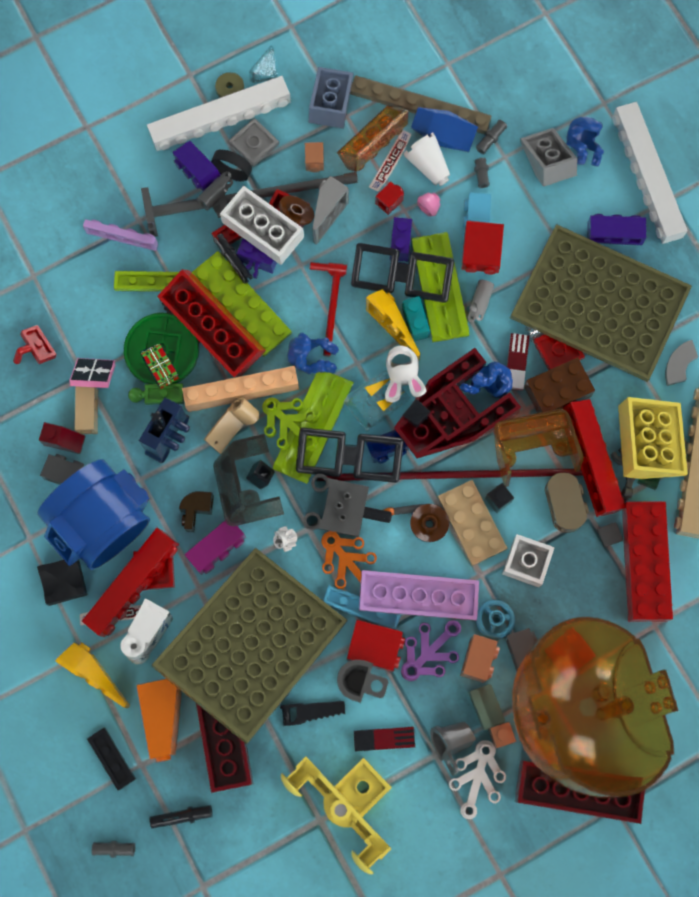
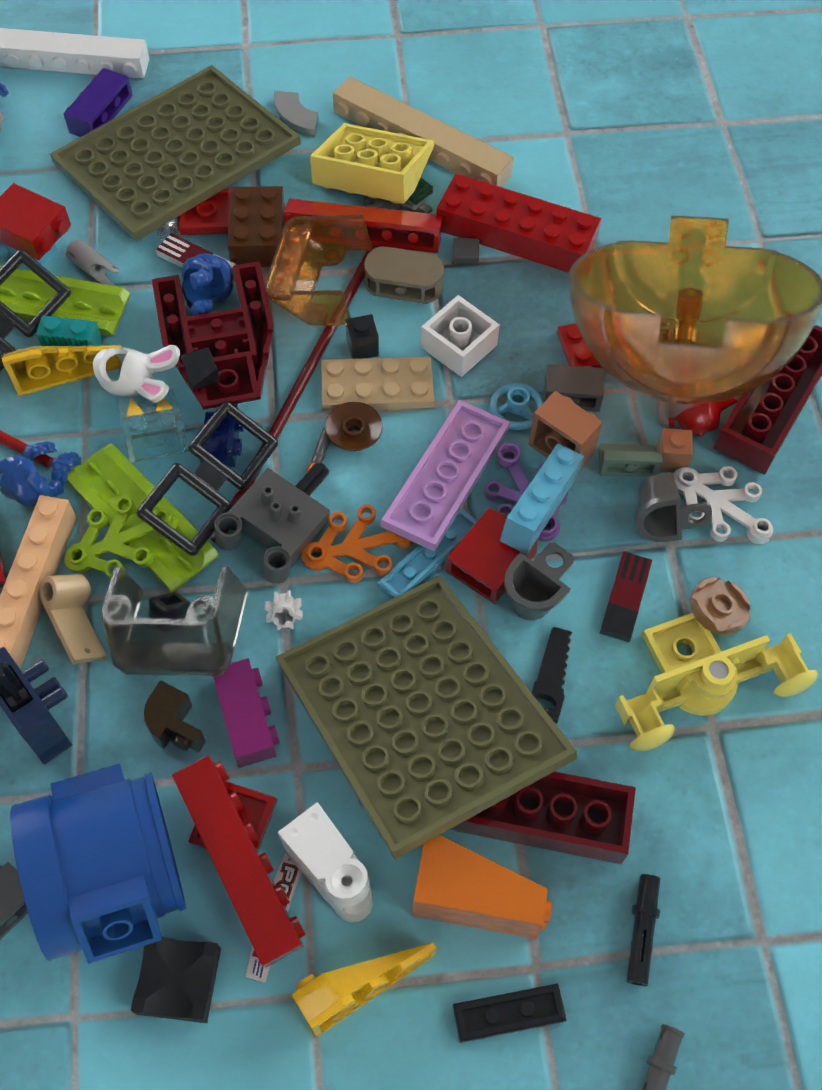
camera: 70 degrees left, 15 degrees down
(400, 800) = (720, 606): none -> medium nougat tile
(420, 662) = (541, 498): none -> medium azure brick

